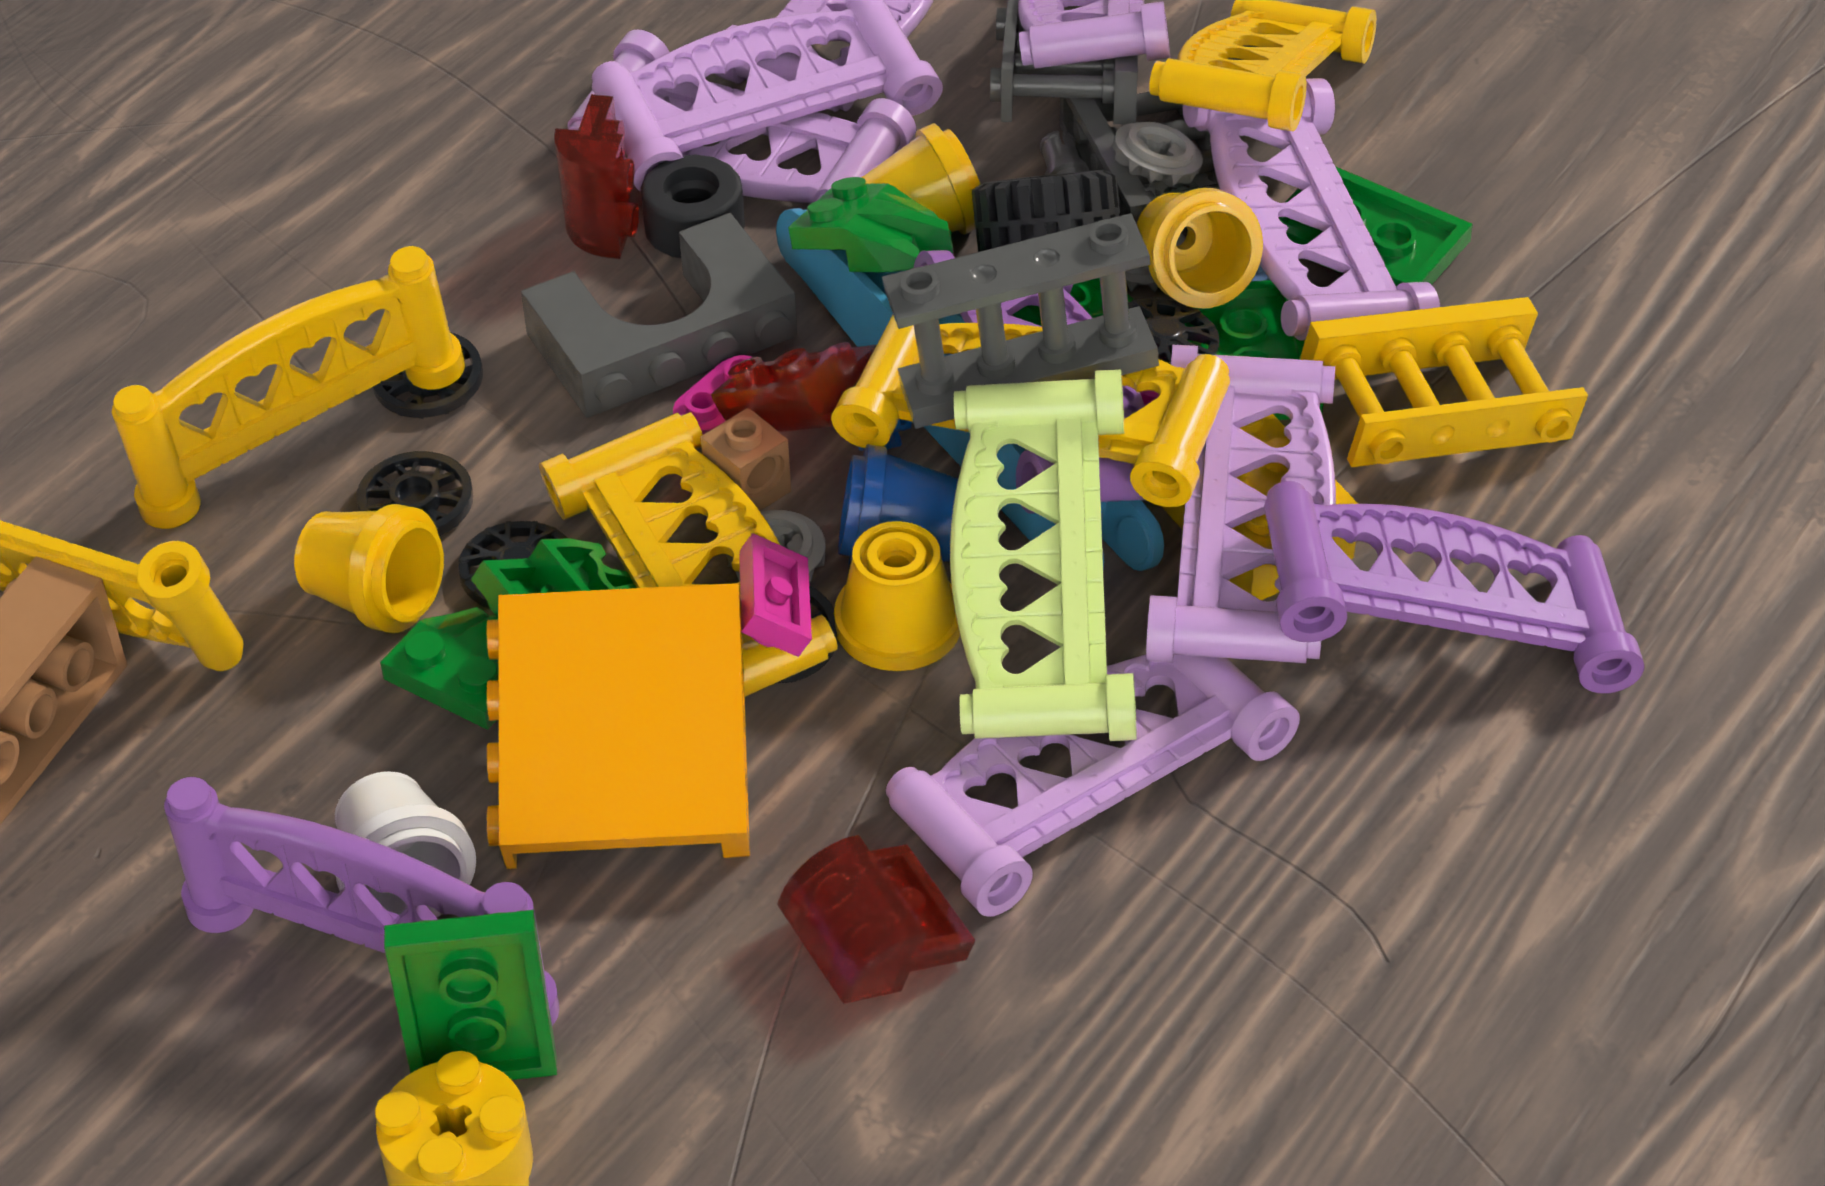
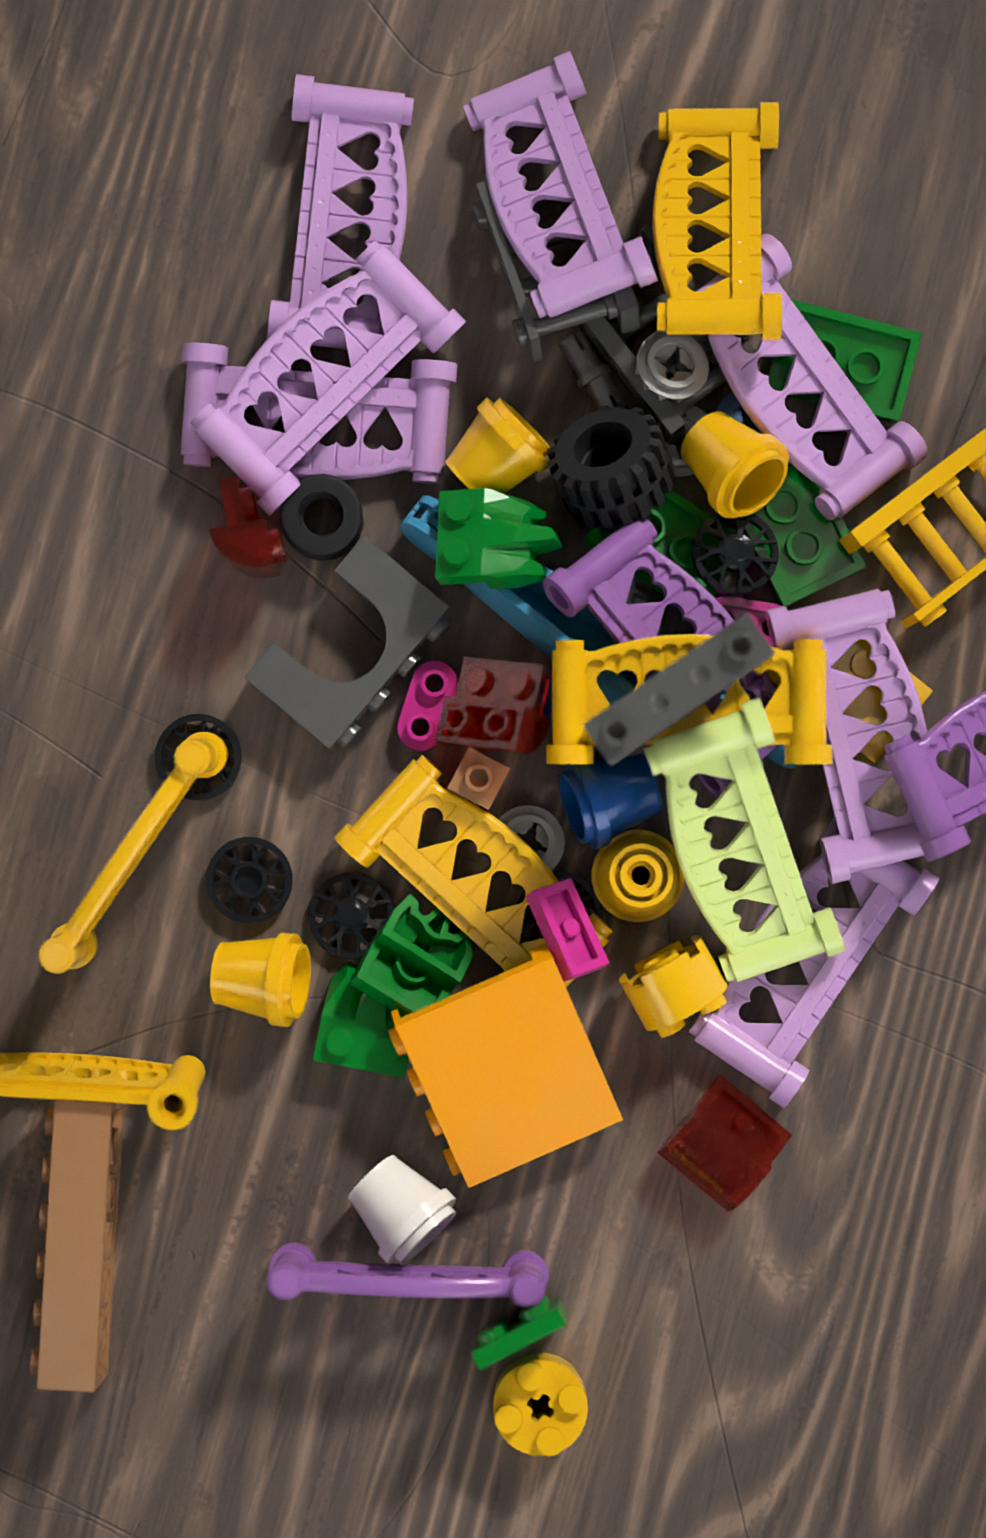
camera: 25 degrees left, 40 degrees up
(888, 711) = (675, 986): none -> yellow brick

